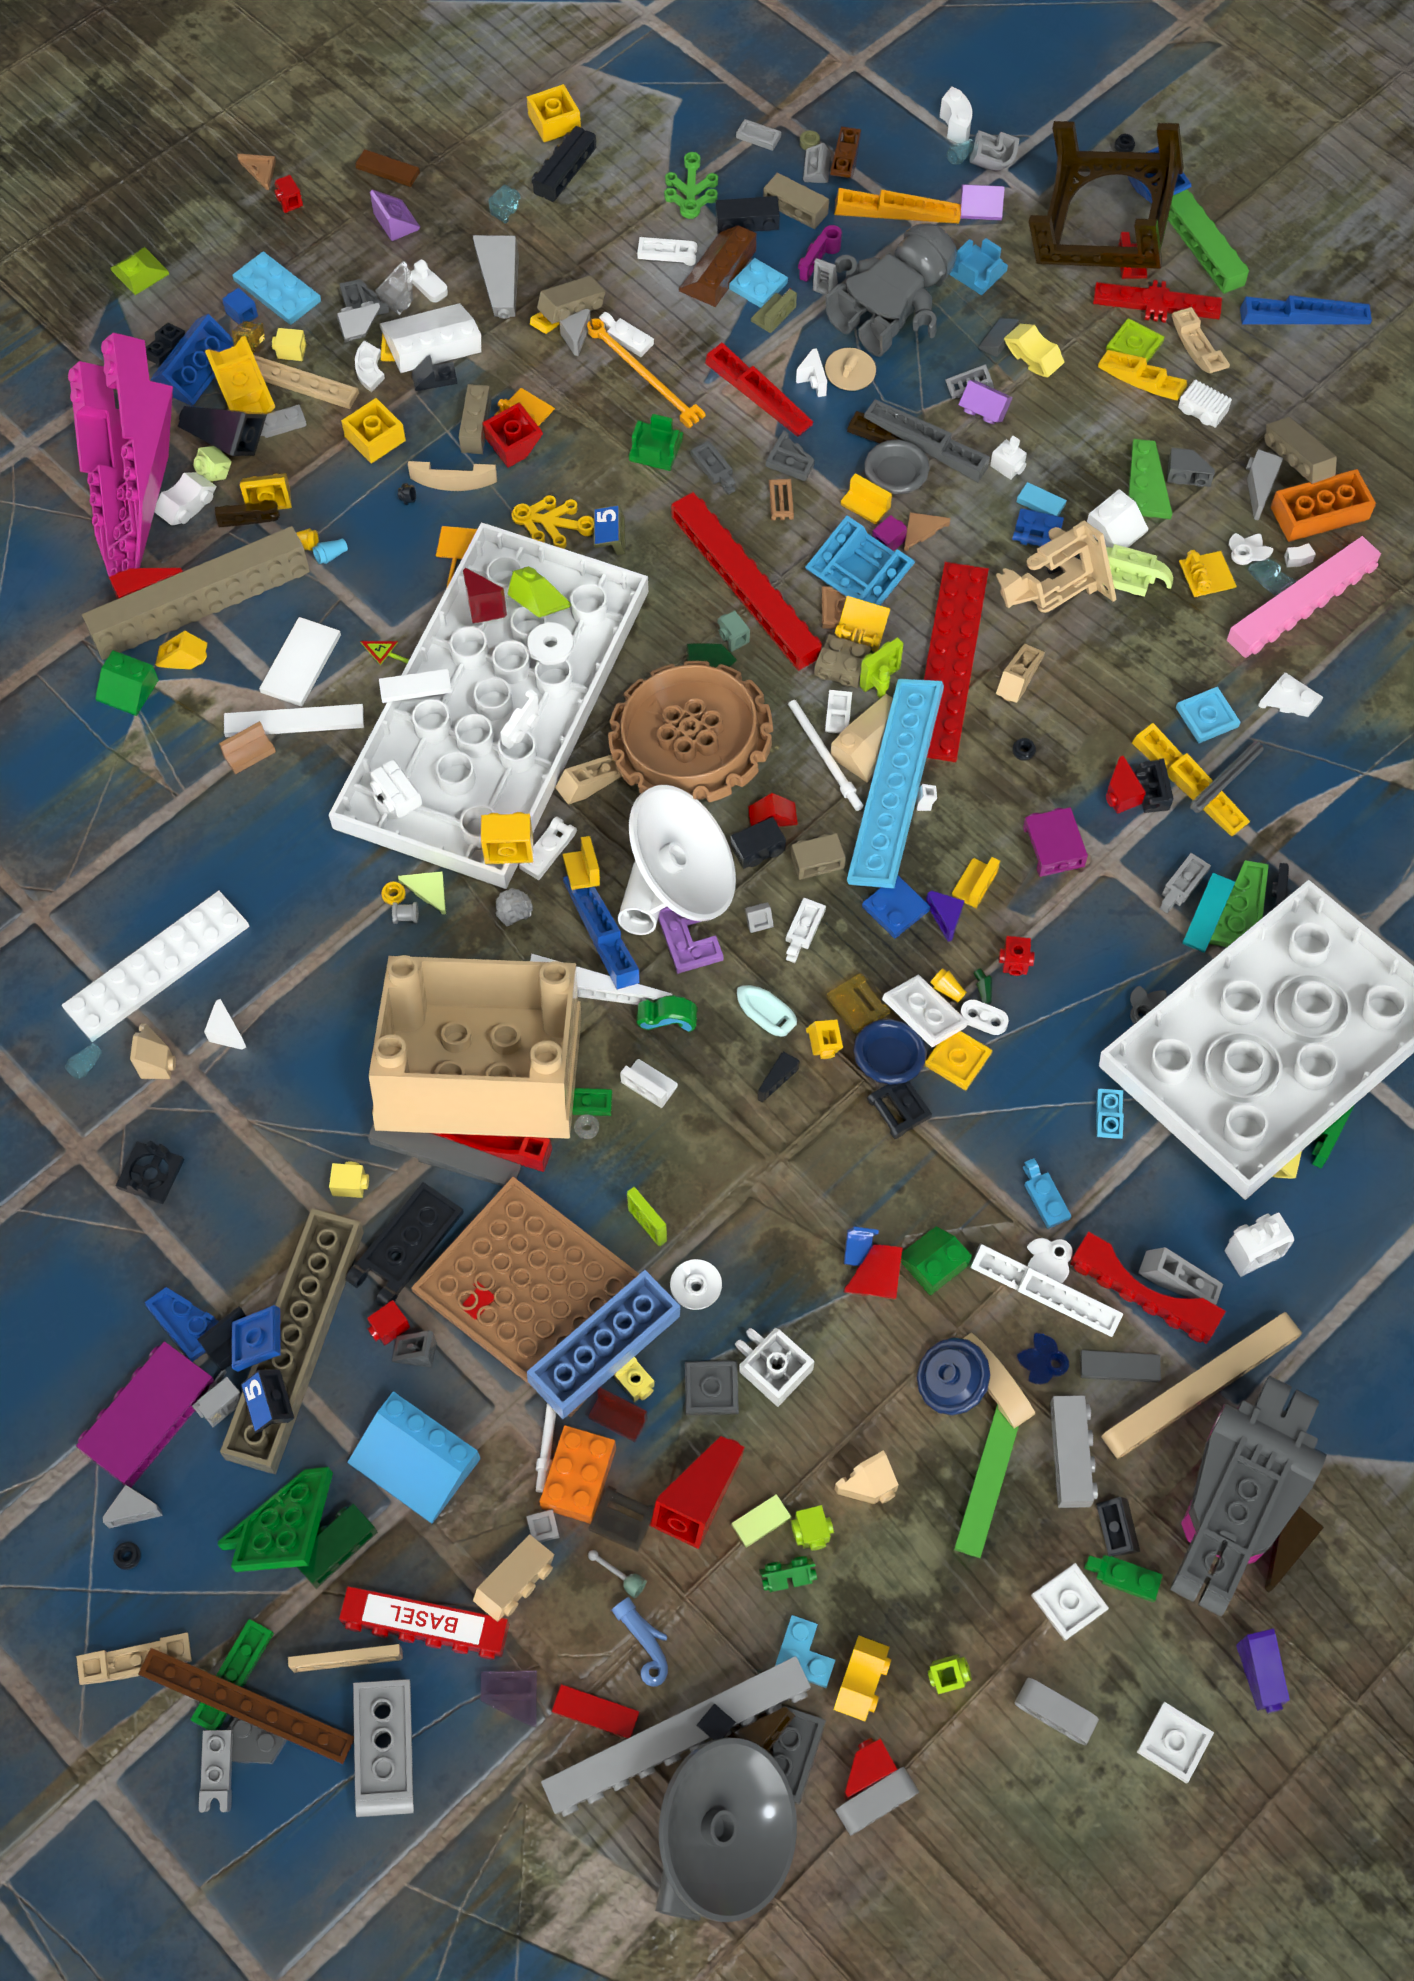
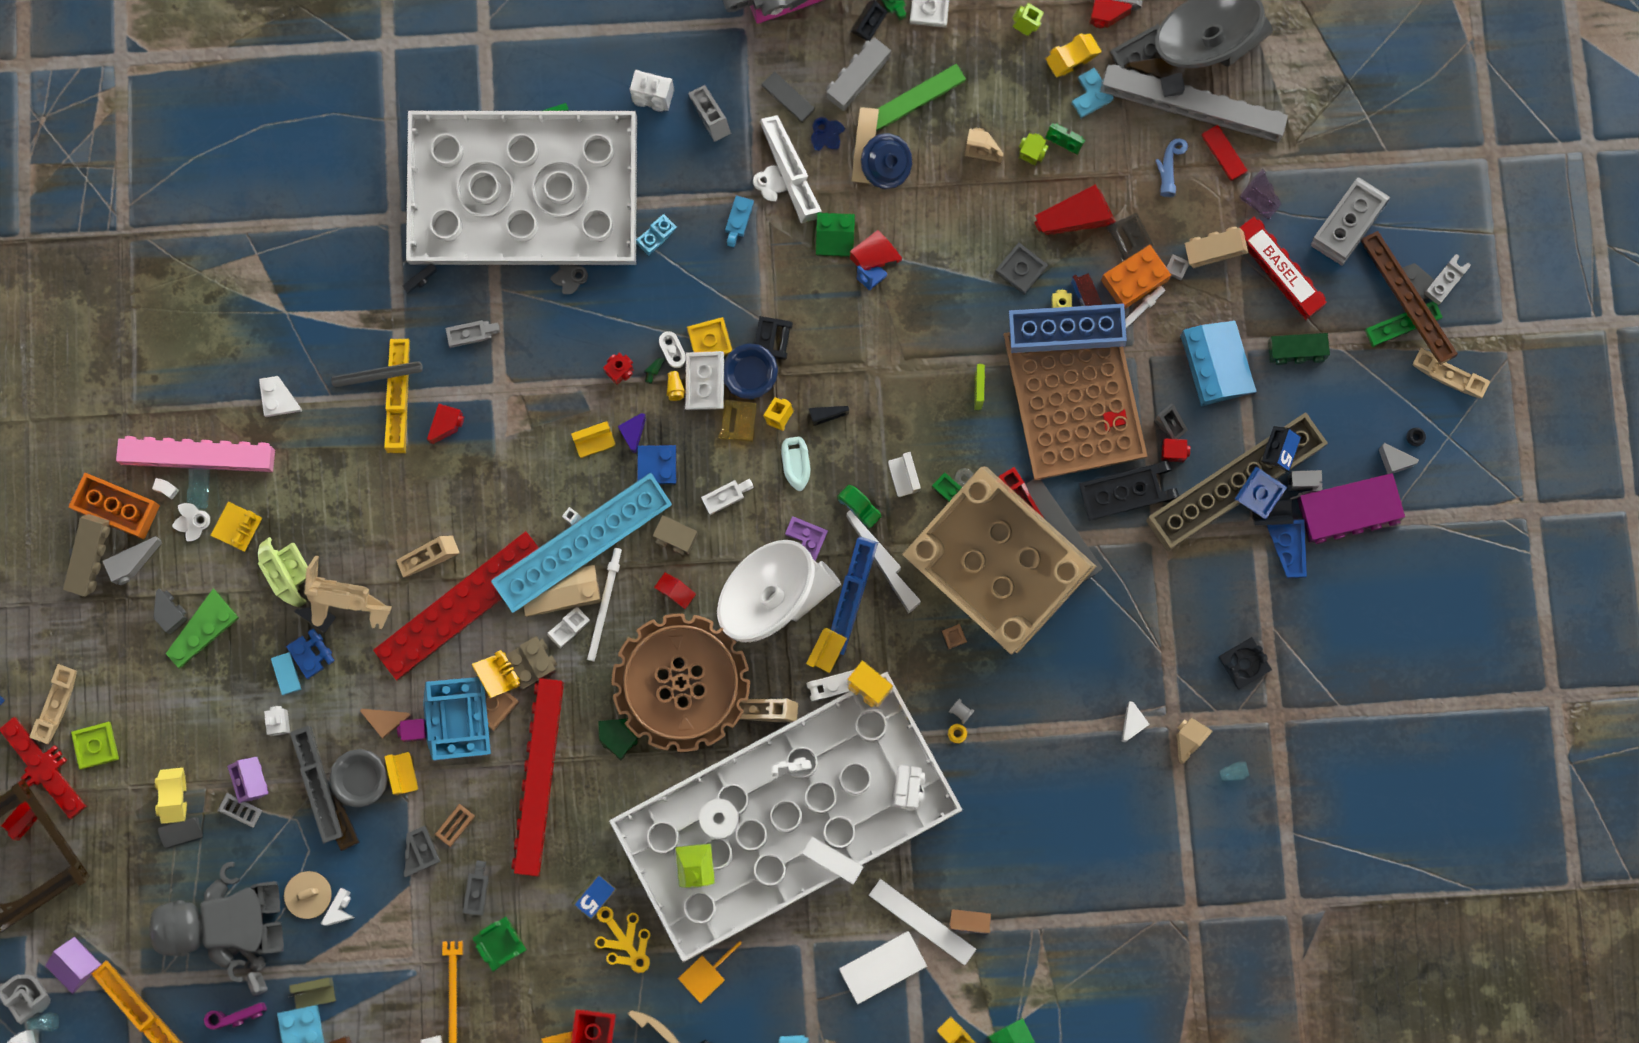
camera: 140 degrees left, 15 degrees up
(155, 966) = (1143, 806): white plate -> none
(283, 1527) = (1320, 379): green wing -> none
(345, 1658) = (1336, 283): tan tile -> none
(348, 1180) = (1131, 557): light yellow brick -> none
(382, 649) = (822, 931): piece -> none
(427, 887) = (932, 720): yellowish green tile -> none
(484, 598) = (740, 885): dark red slope -> none
(513, 906) = (892, 655): light grey piece -> none
(632, 1583) = (1152, 198): hinge -> none
(693, 1273) = (986, 321): white dish -> none
(733, 630) = (581, 744): sand green brick -> none
(758, 389) = (387, 931): red slope -> none
(758, 843) = (703, 574): black brick -> none
(759, 917) = (748, 524): light grey tile -> none
(761, 1521) = (1055, 176): yellowish green tile -> none
(774, 1350) = (975, 256): white hinge -> none
(879, 666) = (523, 630): lime plate -> none
(979, 266) = (134, 903): dark azure panel -> none
(1024, 743) = (478, 496): black plate -> none
(1056, 841) = (521, 423): magenta panel -> none
(1118, 520) = (256, 611): white slope -> none
(1143, 376) = (118, 714): yellow slope -> none
(1156, 785) = (424, 408): black hinge -> none
(1194, 1316) = (723, 88): red arch -> none
(1201, 1385) = (754, 50): tan beam -> none
(1204, 403) = (103, 652): white brick -> none
(1208, 715) = (342, 427): medium azure plate -> none
(1208, 912) = (477, 301): teal slope -> none
(1244, 904) = (453, 287): bright green wing -> none

